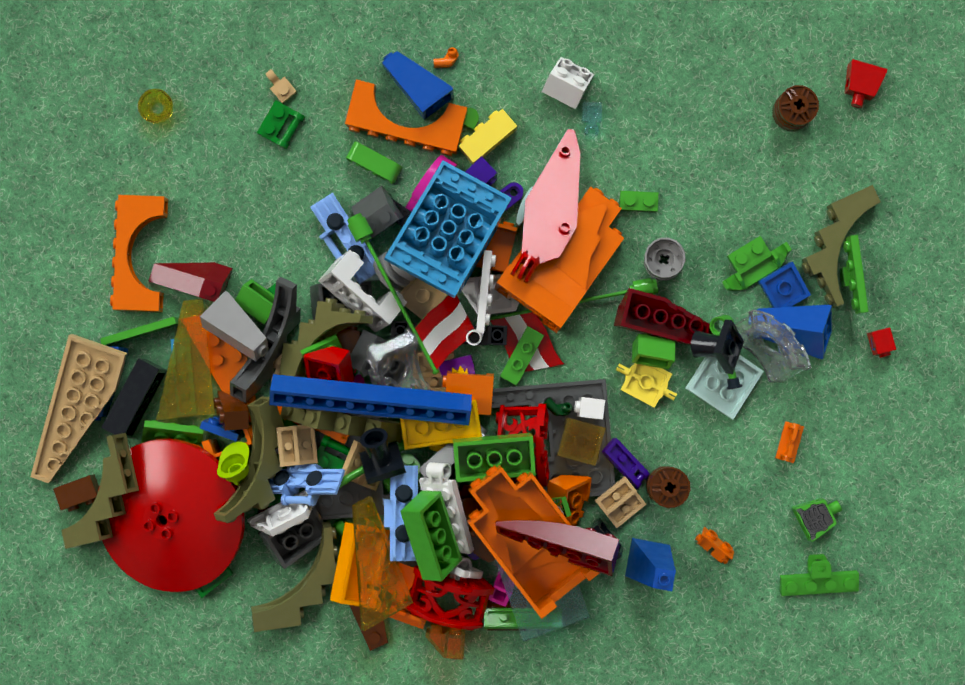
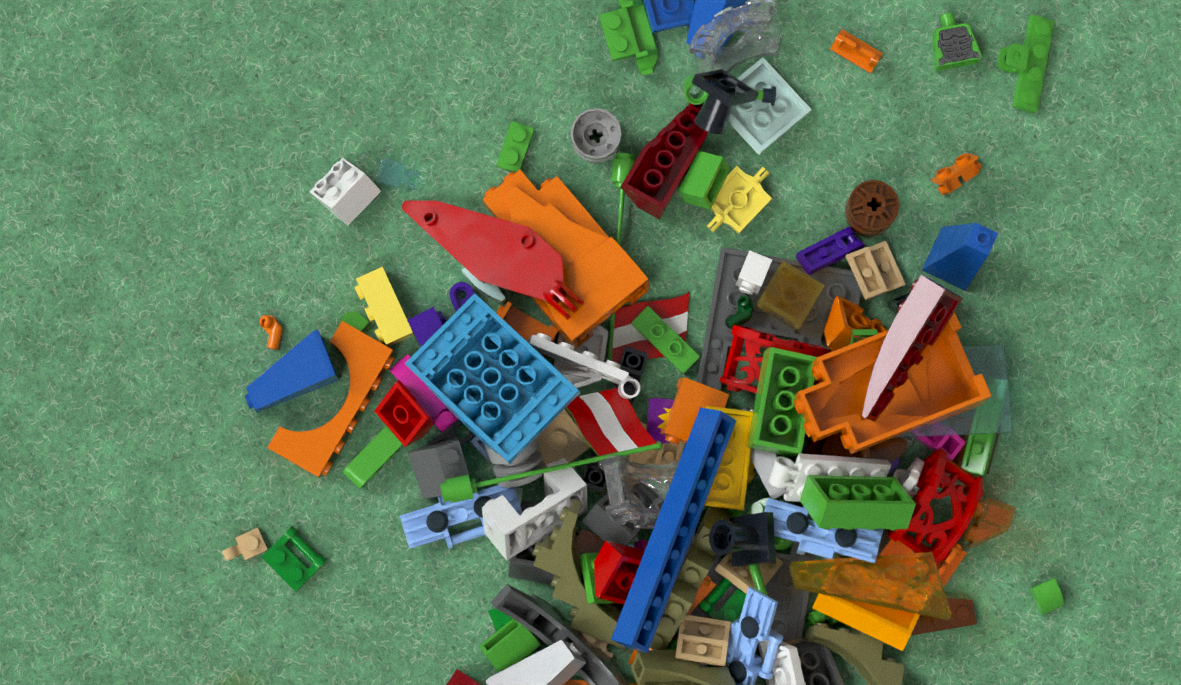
camera: 80 degrees left, 5 degrees down
(408, 174) = (404, 415): none -> red slope

